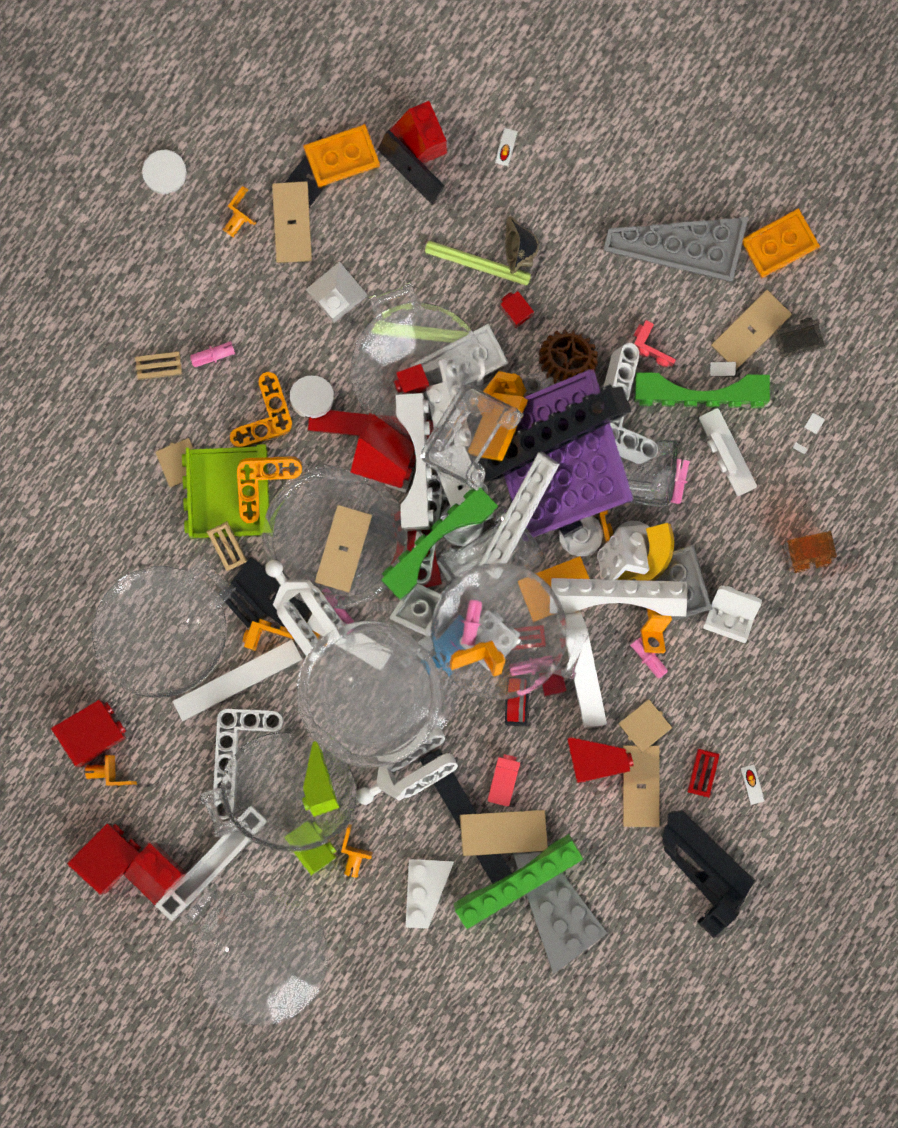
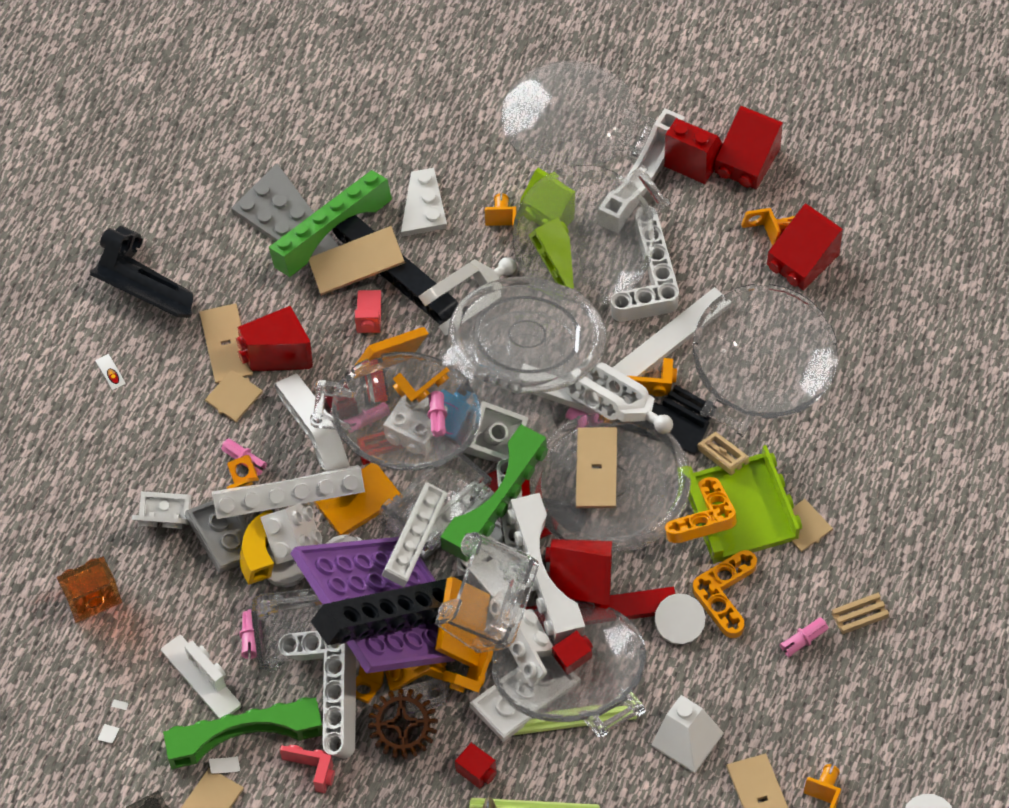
camera: 165 degrees right, 25 degrees down
(497, 713) = (405, 342): none -> light orange tile
(694, 772) = (162, 385): red tile -> none

